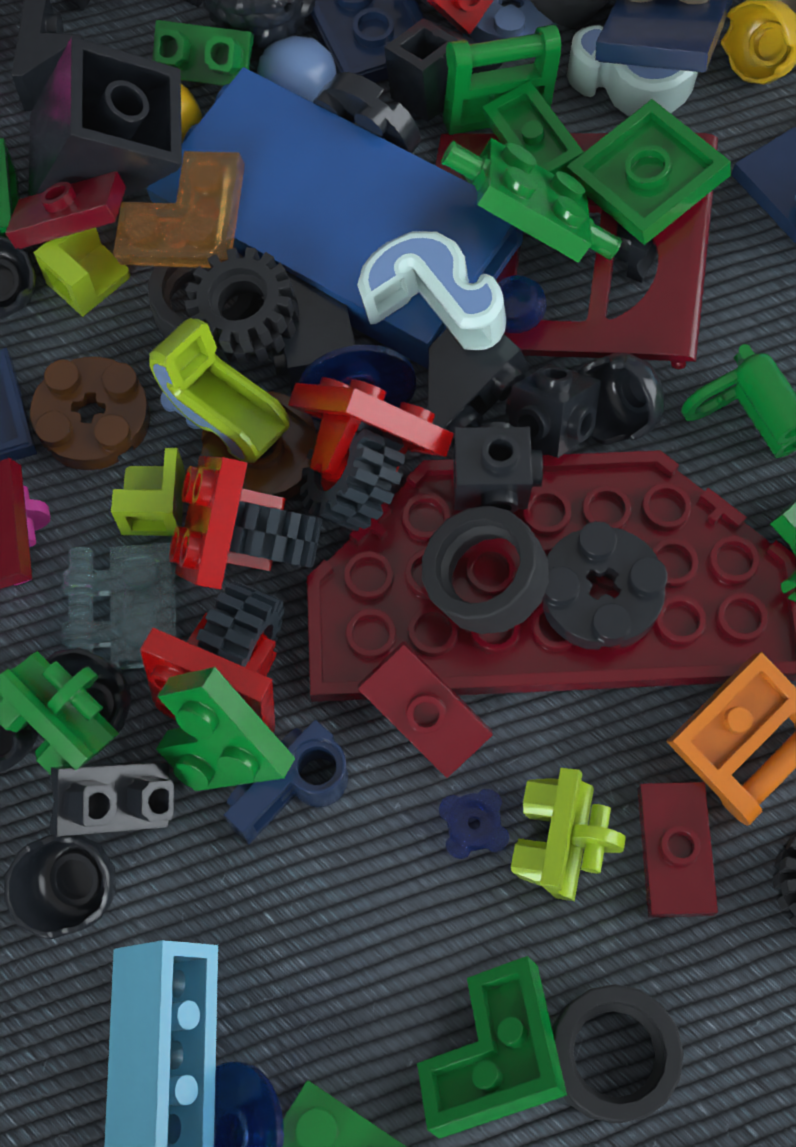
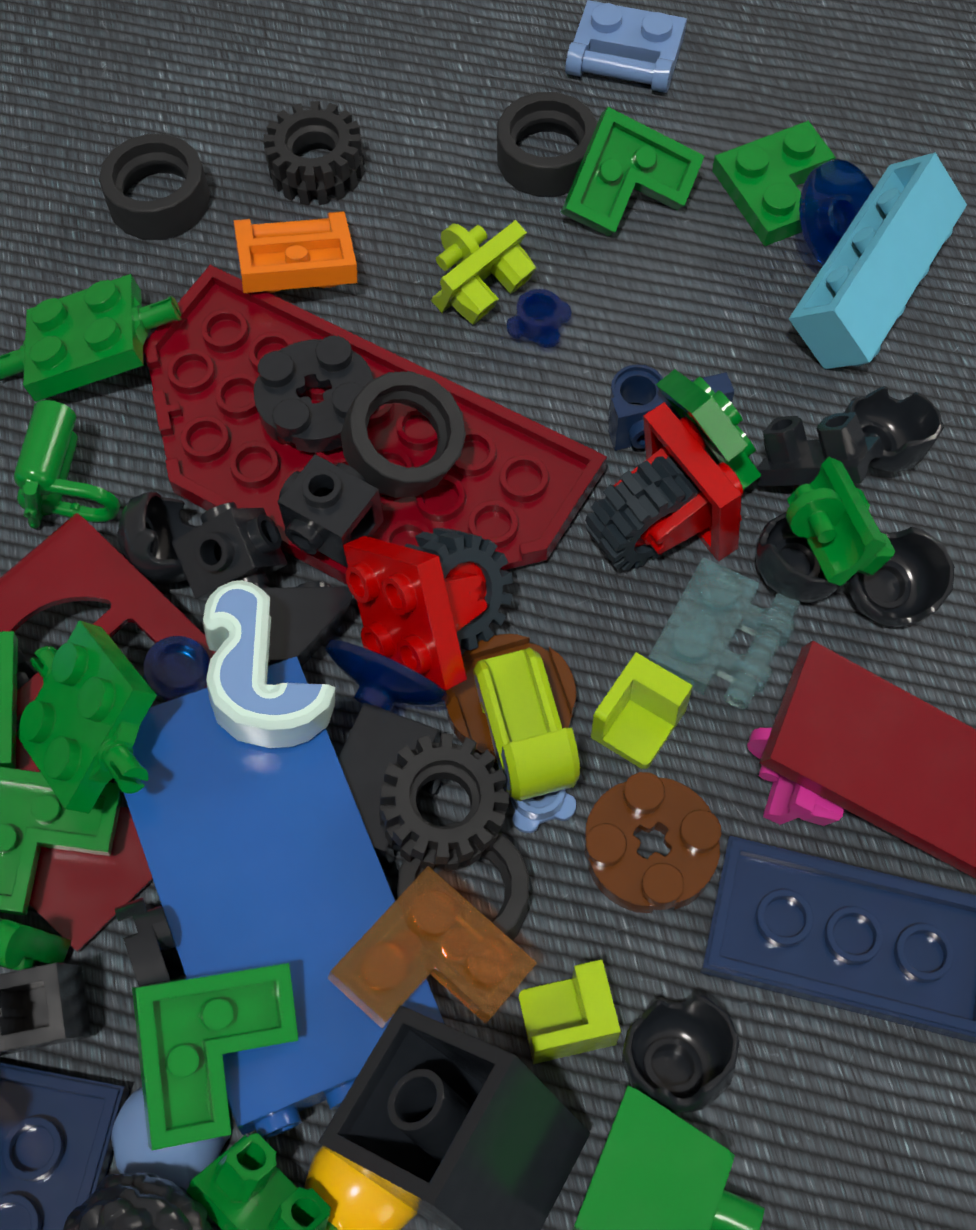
camera: 145 degrees left, 5 degrees down
(66, 210) = (562, 1052): dark red plate -> none
(236, 526) = (589, 601): red plate -> none
(297, 69) = (182, 1042): none -> green plate
(425, 709) = (523, 394): dark red plate -> none
(677, 850) = (405, 231): dark red plate -> none

